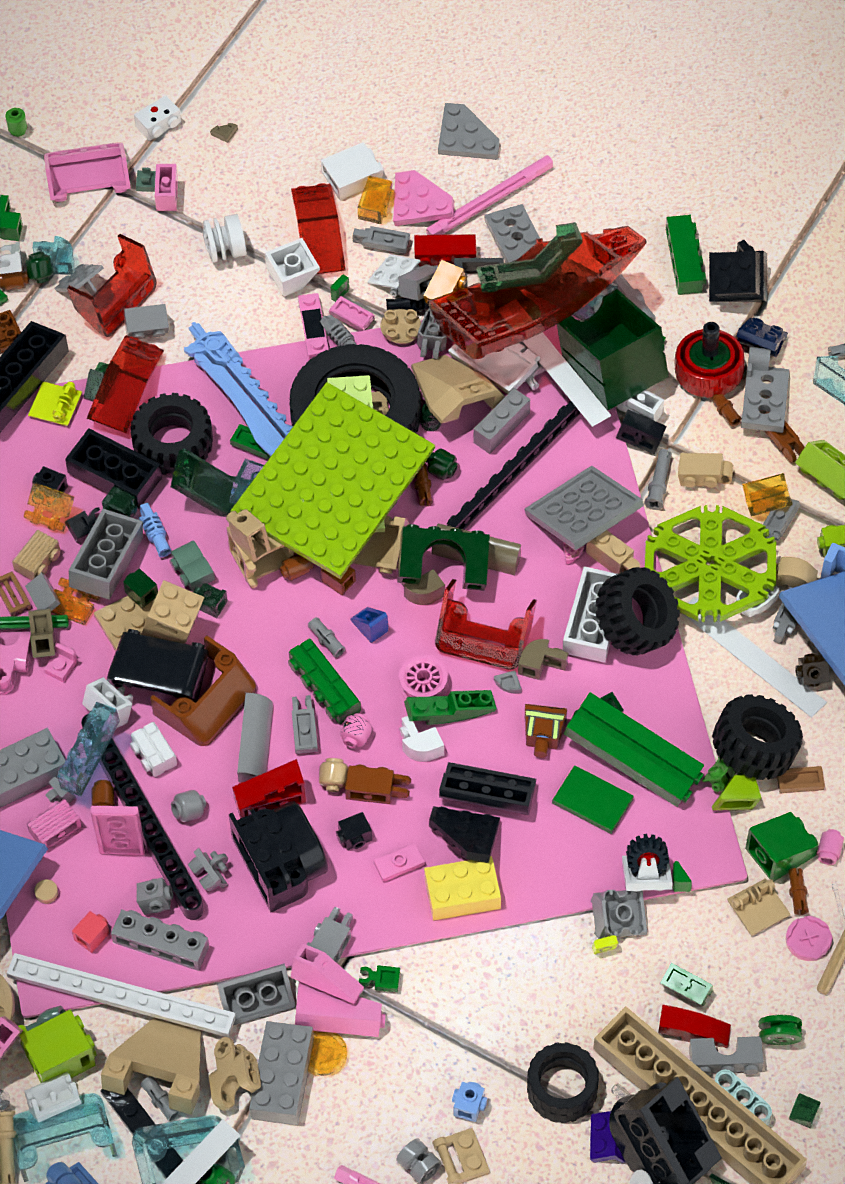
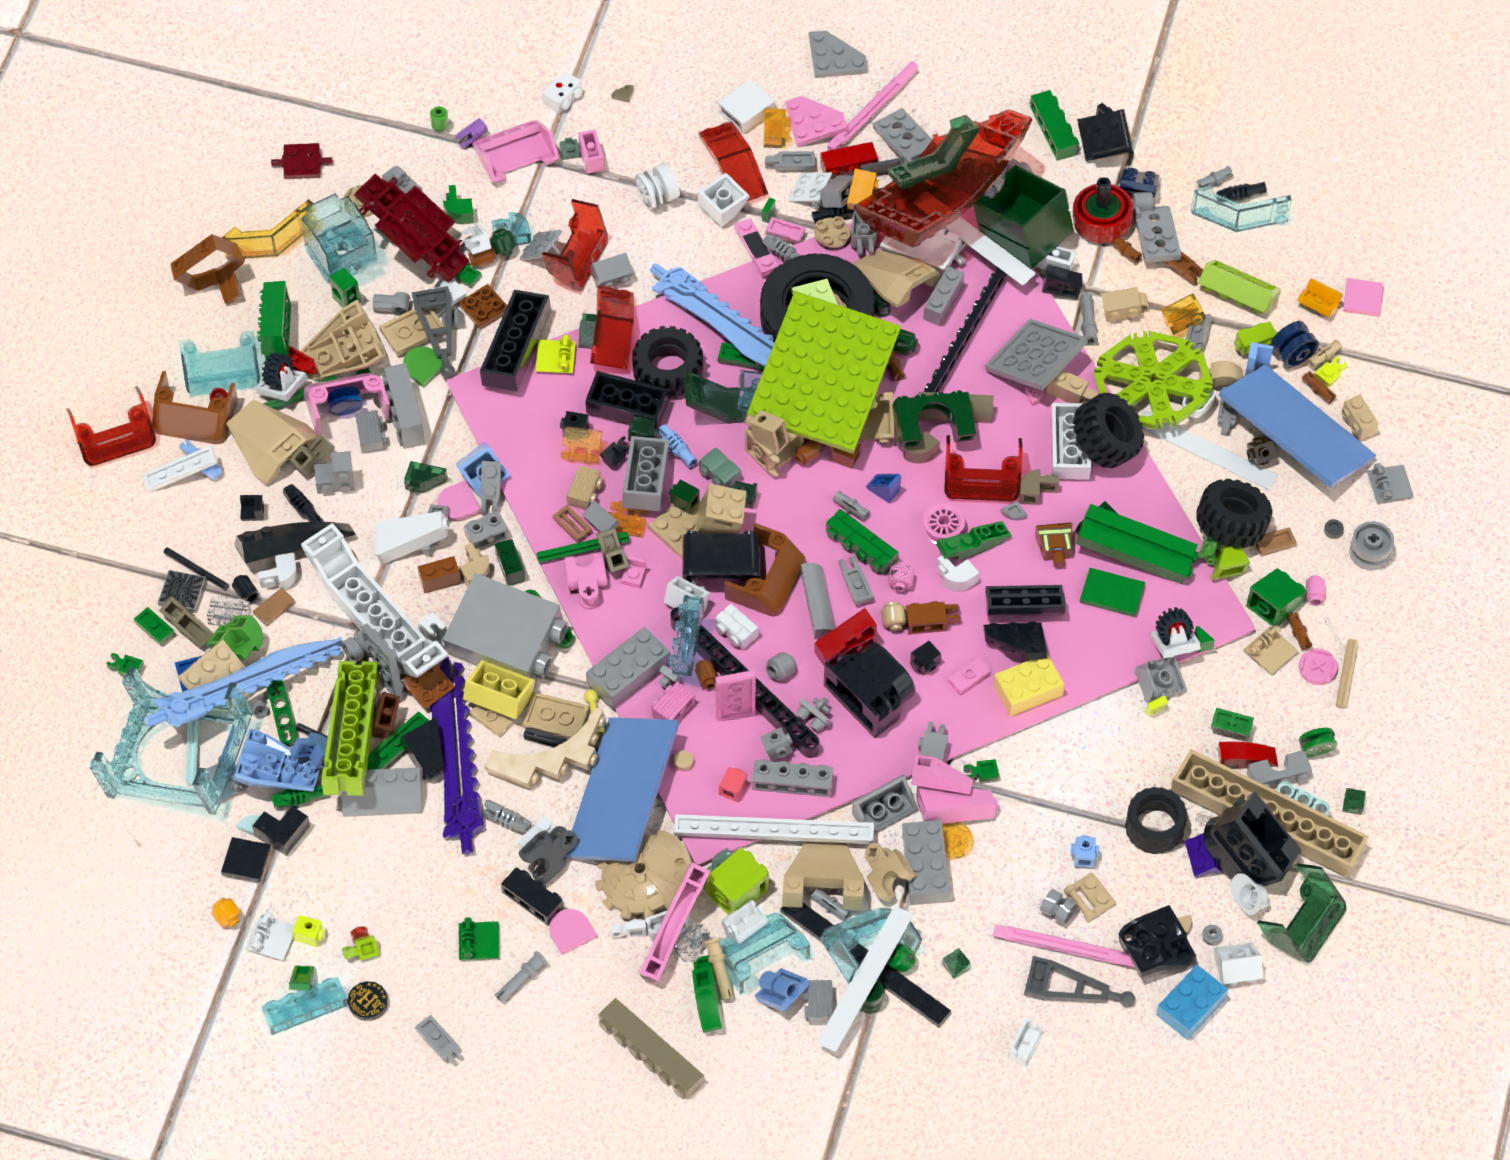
camera: 15 degrees left, 0 degrees up
(49, 141) = (472, 131): none -> medium lavender hinge

